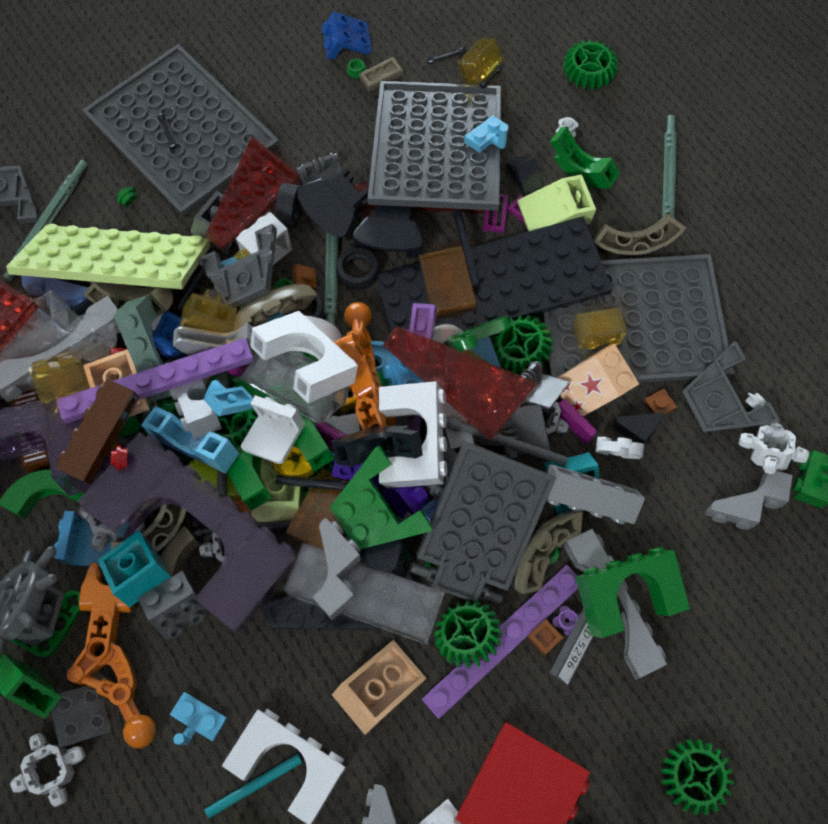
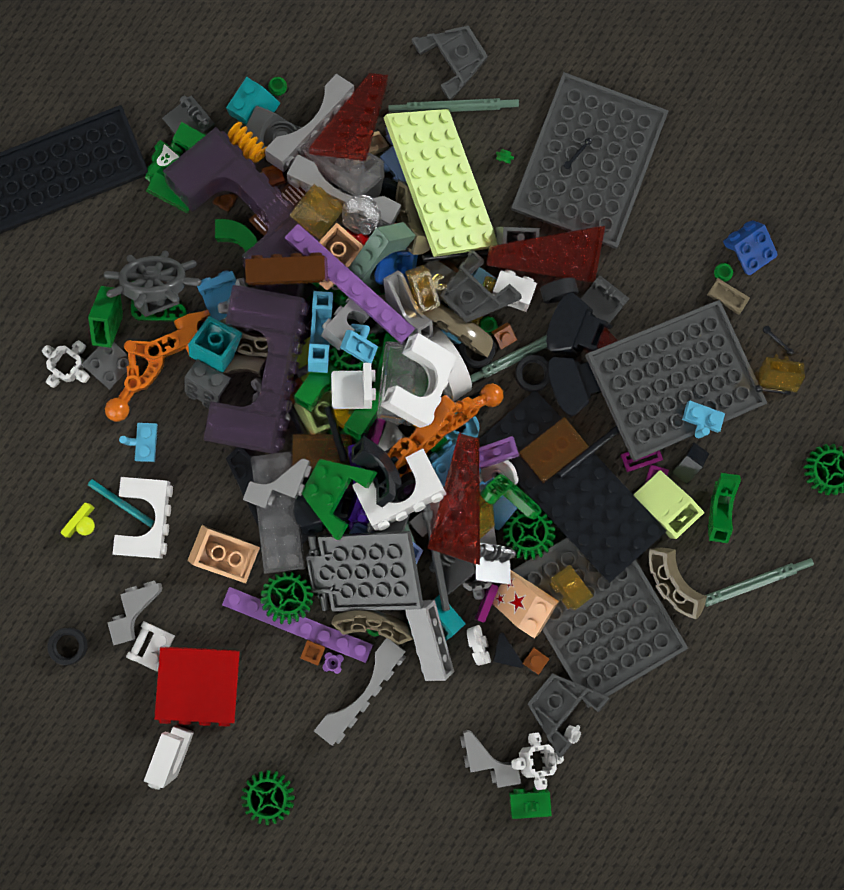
camera: 60 degrees right, 15 degrees up
(119, 458) = (275, 296): red plate -> none
(570, 123) = (758, 473): white plate -> none
(572, 651) = (326, 677): tile -> none
(600, 588) = (361, 676): green arch -> none

